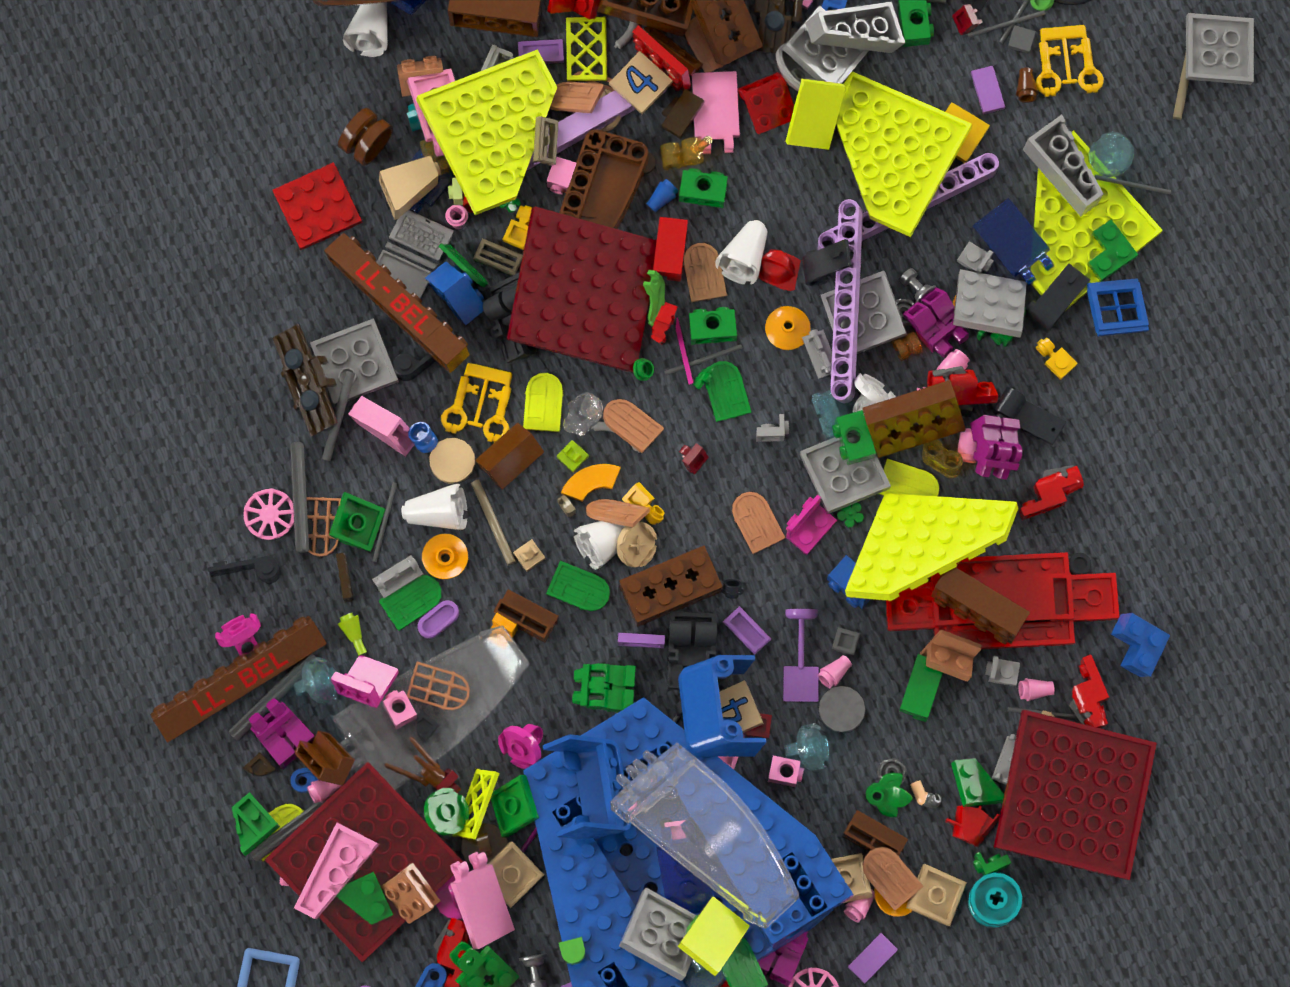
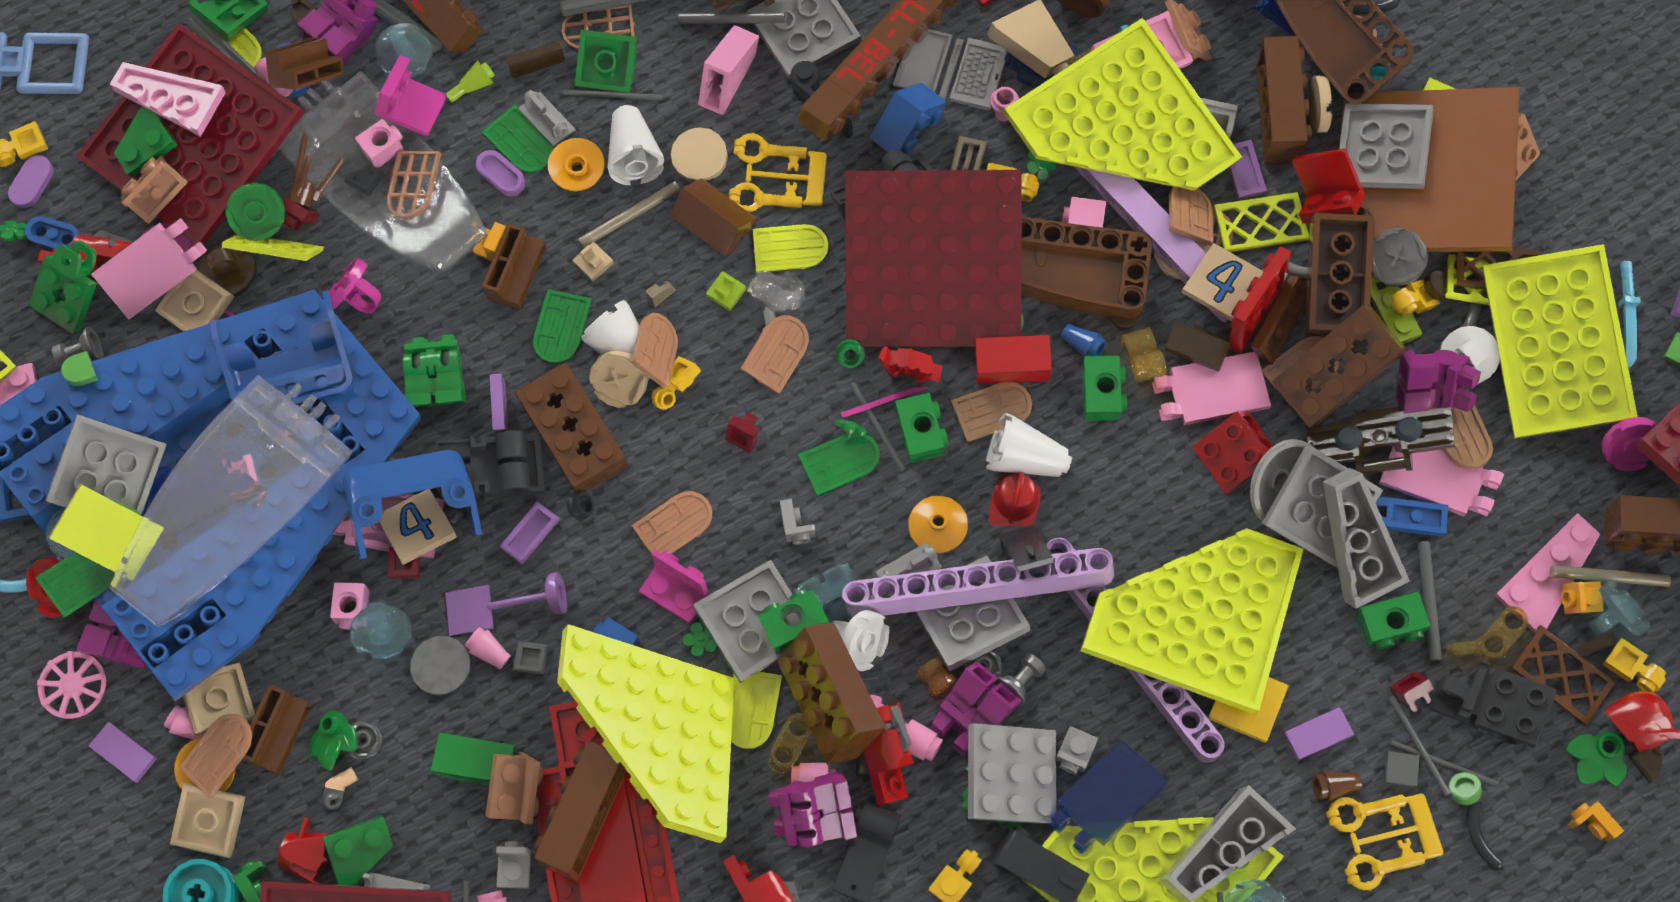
camera: 85 degrees right, 5 degrees down
(423, 437) = (719, 113): blue wheel -> none
(451, 252) = (945, 121): green window -> none
(514, 806) = (272, 288): green tile -> none
(542, 141) = (1120, 171): dark tan tile -> none
(590, 479) = (699, 316): light orange tile -> none
(656, 291) = (951, 352): bright green piece -> none
(815, 114) = (1228, 505): neon yellow tile -> none

